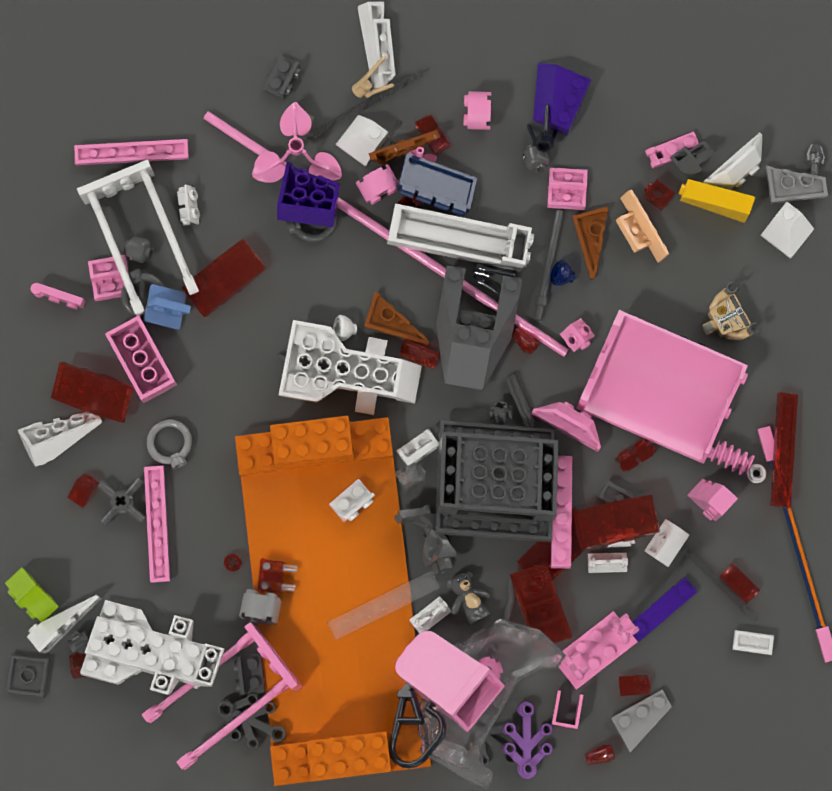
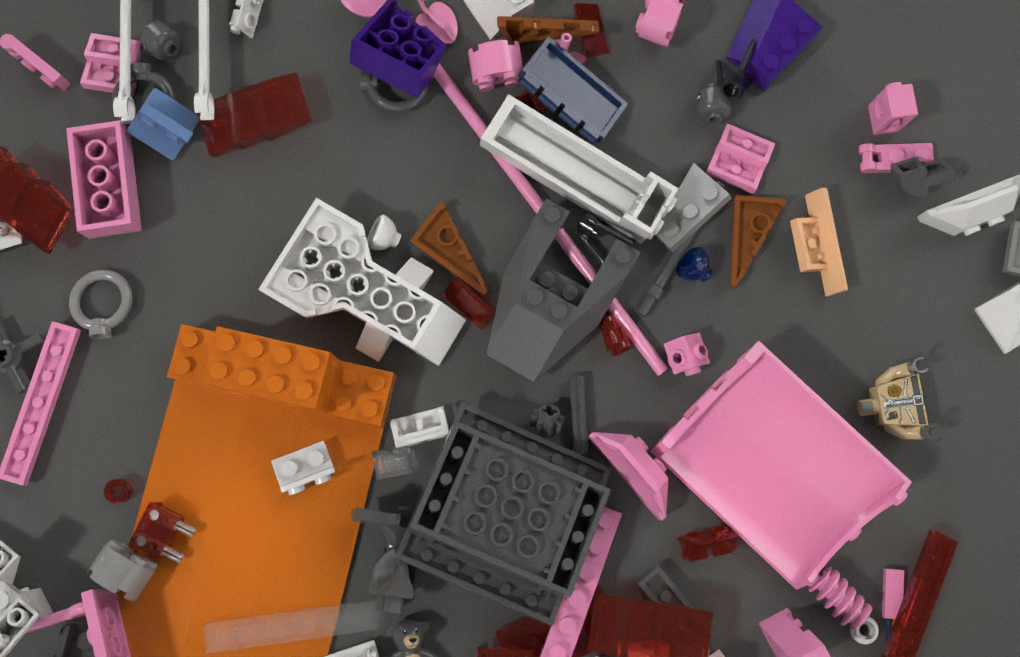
camera: 15 degrees right, 0 degrees up
(547, 230) = (697, 202): none -> light grey wing
(657, 119) = (893, 108): none -> bright pink brick
(659, 203) = (869, 206): clear red brick -> none
(717, 200) = (938, 243): yellow slope -> none

